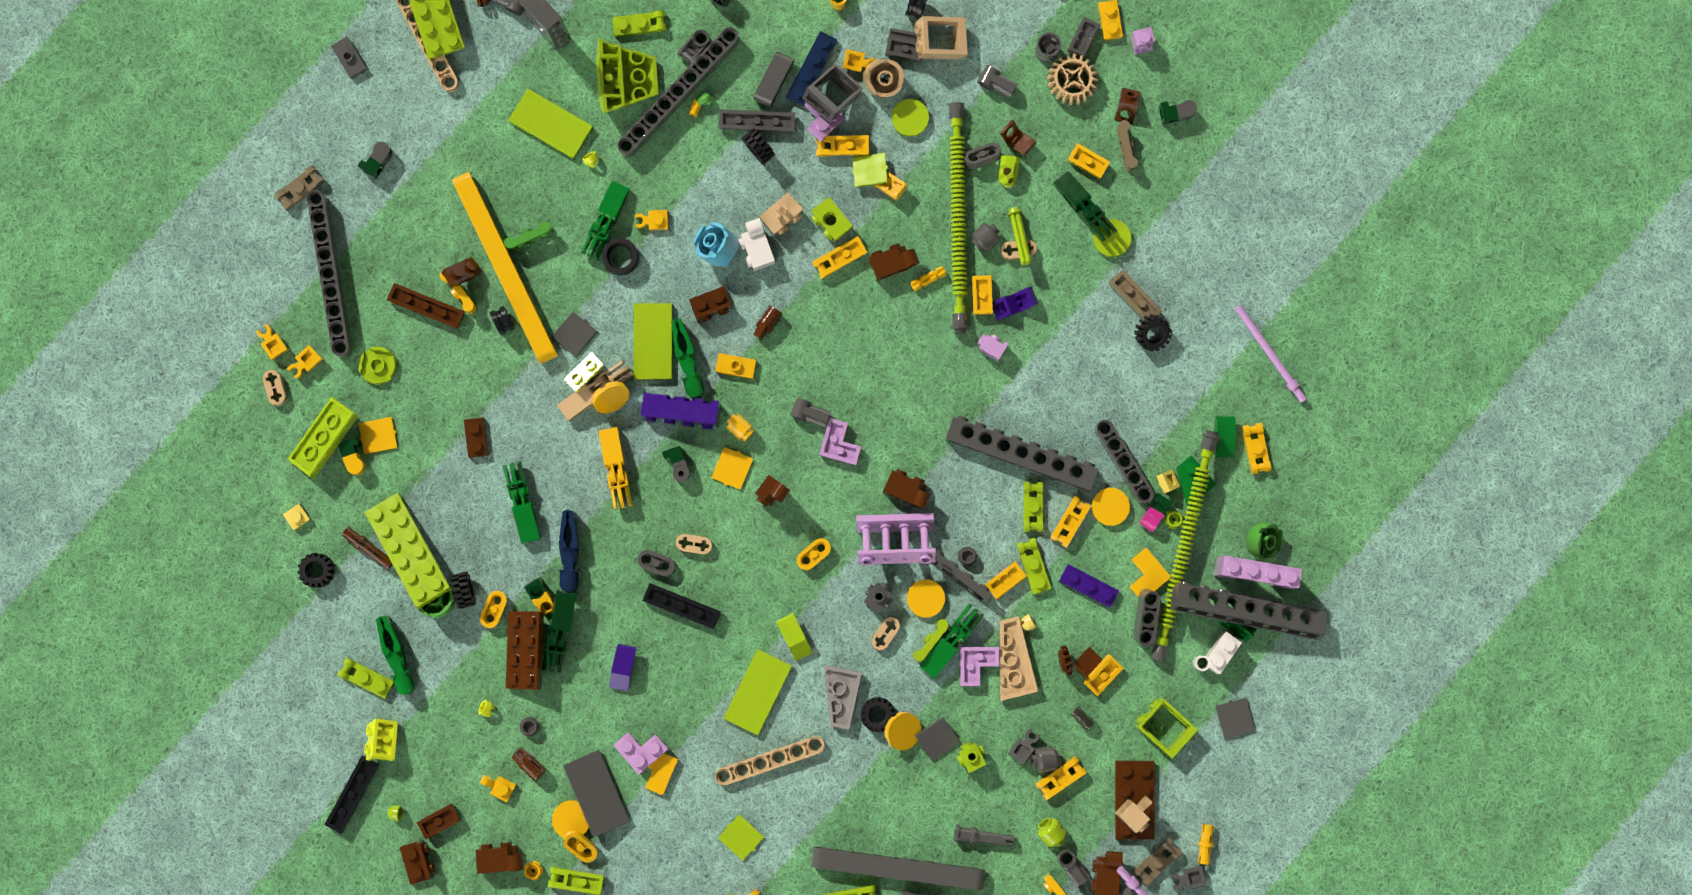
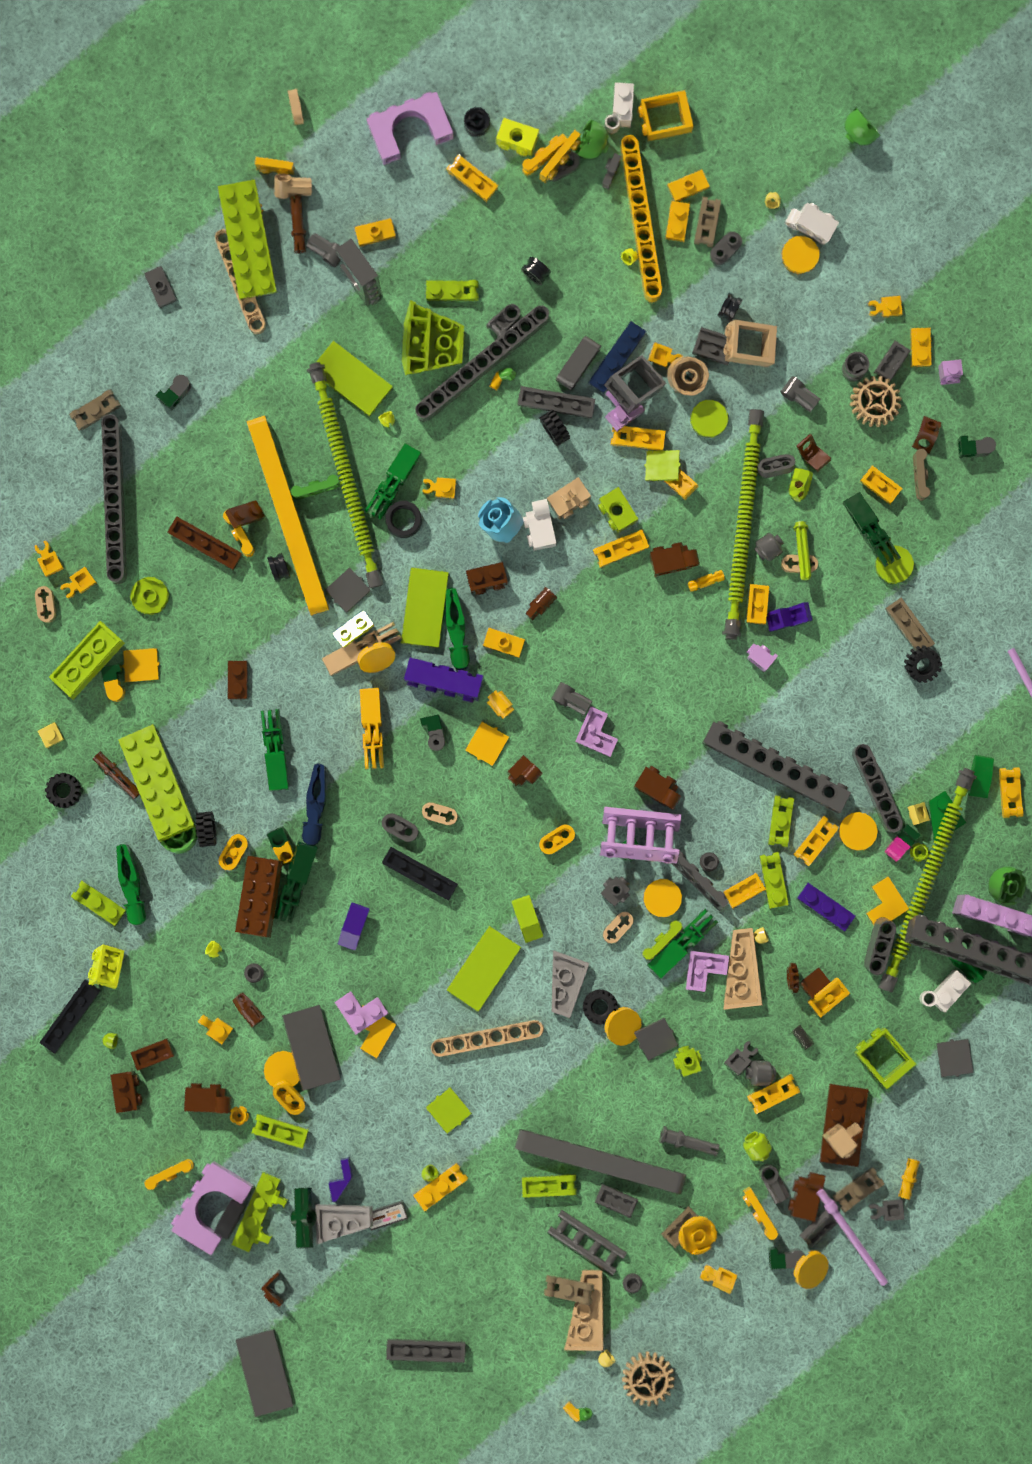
camera: 10 degrees right, 0 degrees up
(536, 171) = (336, 444): none -> lime hose

